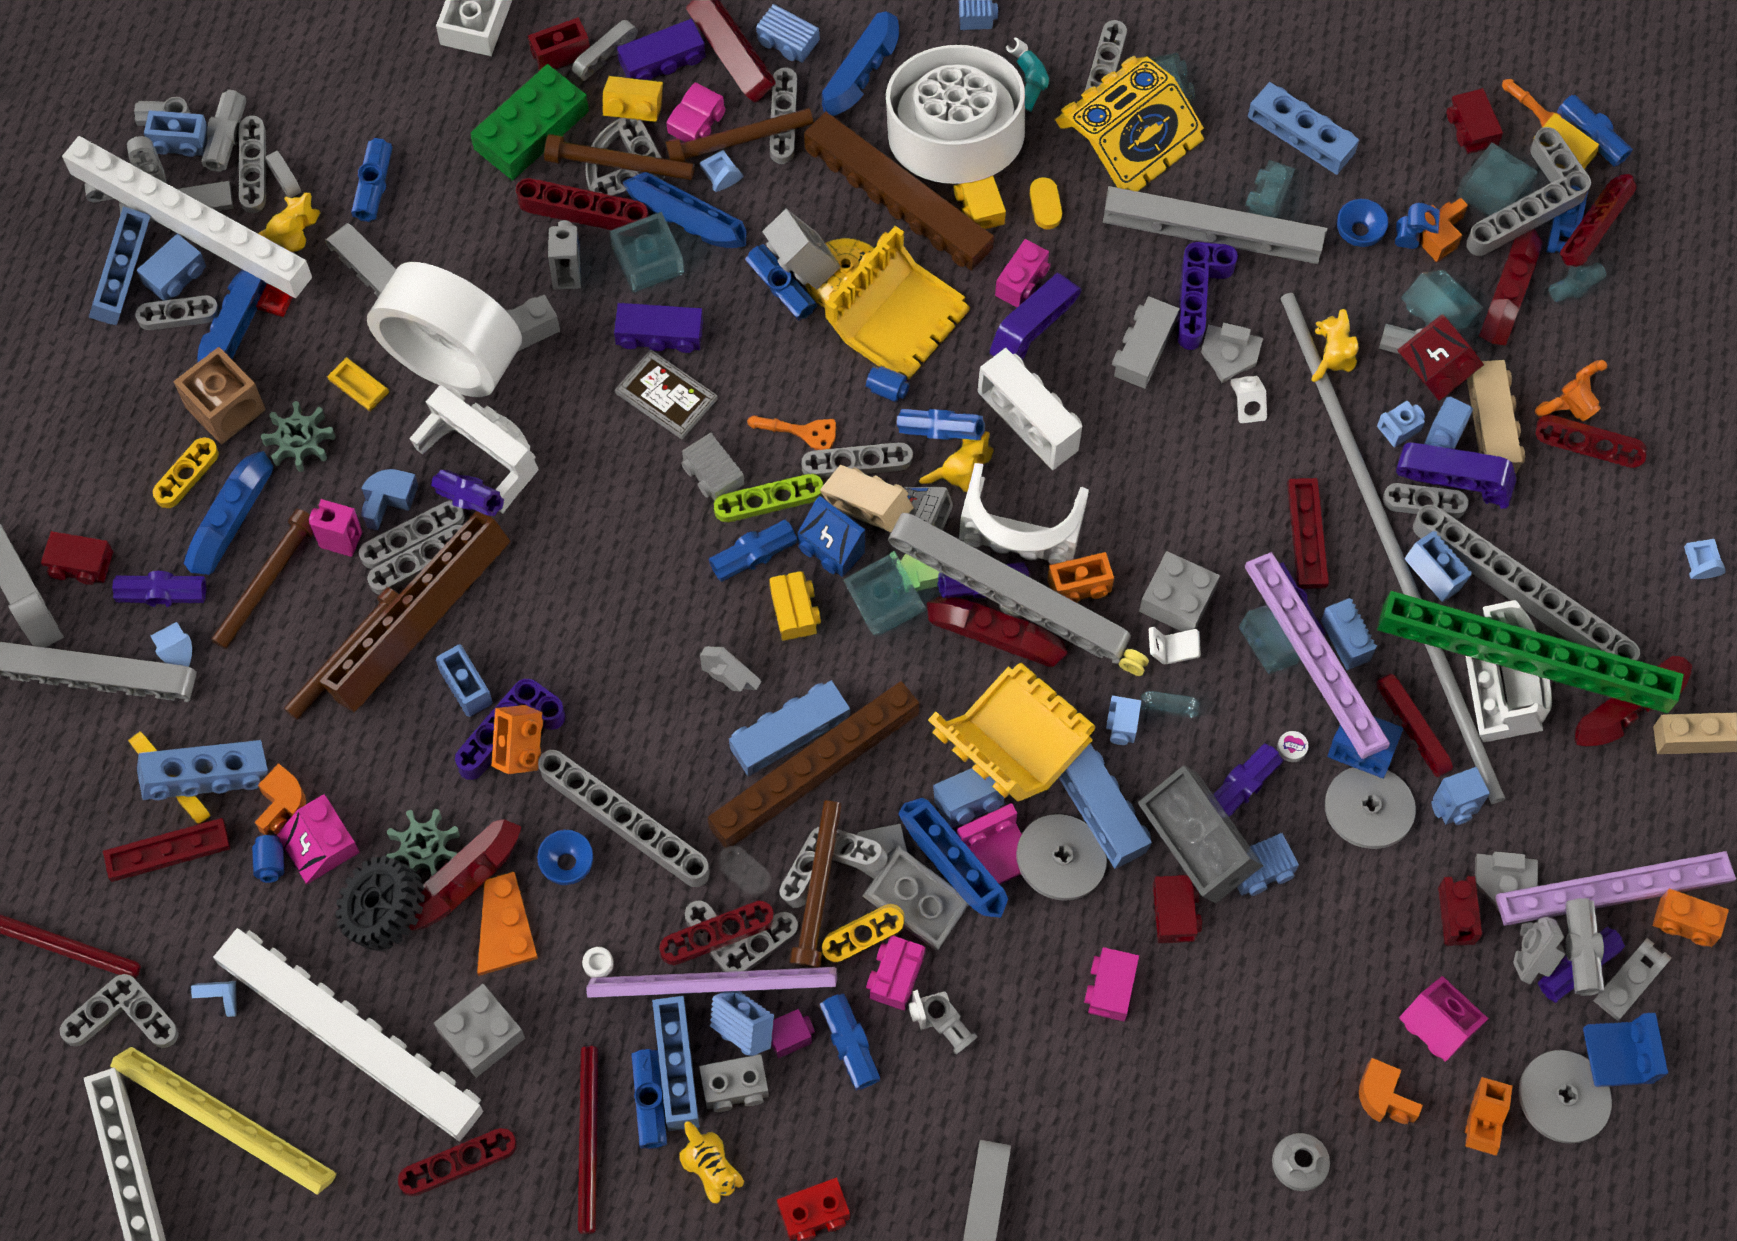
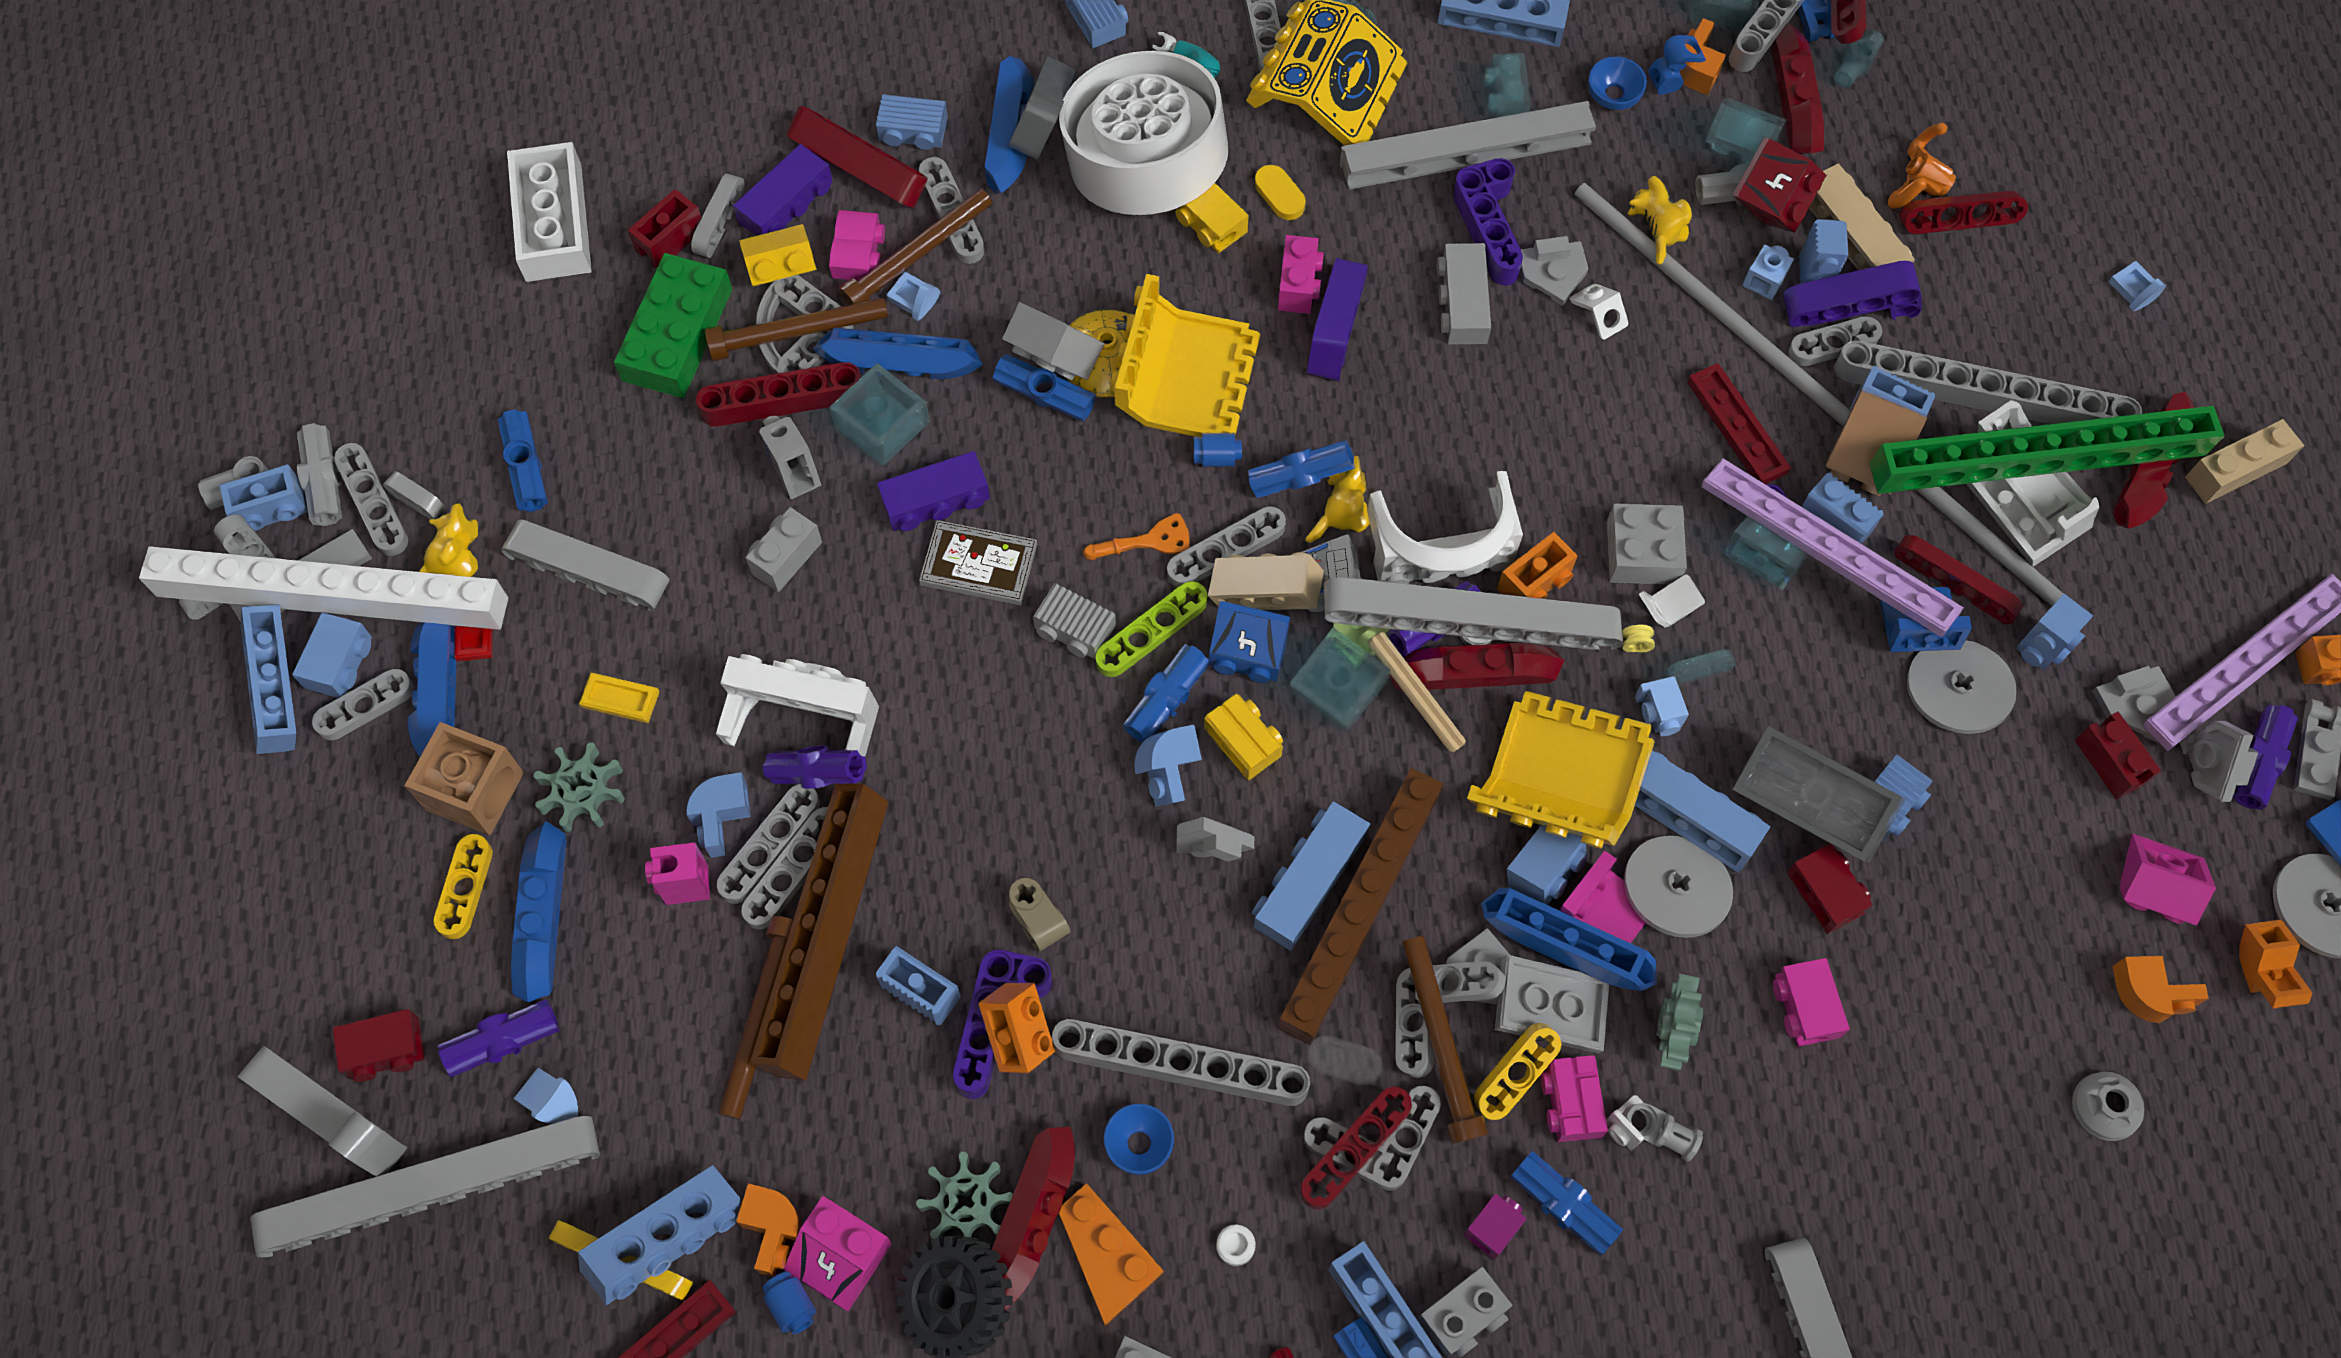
camera: 25 degrees left, 0 degrees up
(265, 577) = (634, 890): reddish brown piece -> none
(444, 329) = (701, 590): white wheel -> none
(575, 670) = (1038, 919): none -> dark tan piece
(712, 982) = (1381, 1208): lavender tile -> none
(721, 594) = (1161, 757): none -> medium blue brick
(742, 1022) = (1442, 1239): medium blue brick -> none
(886, 60) = (1042, 108): none -> dark grey beam
(898, 191) = (1118, 240): reddish brown brick -> none
(938, 628) = (1416, 692): none -> tan axle
(1000, 950) = (1679, 1022): none -> sand green gear
(1030, 408) = (1387, 412): white brick -> none
(1247, 778) = (1825, 709): dark purple piece -> none
(1292, 746) = (1847, 656): white tile -> none
(1403, 573) = (1867, 427): none -> medium nougat brick
(1584, 947) = (2272, 736): light grey piece -> none

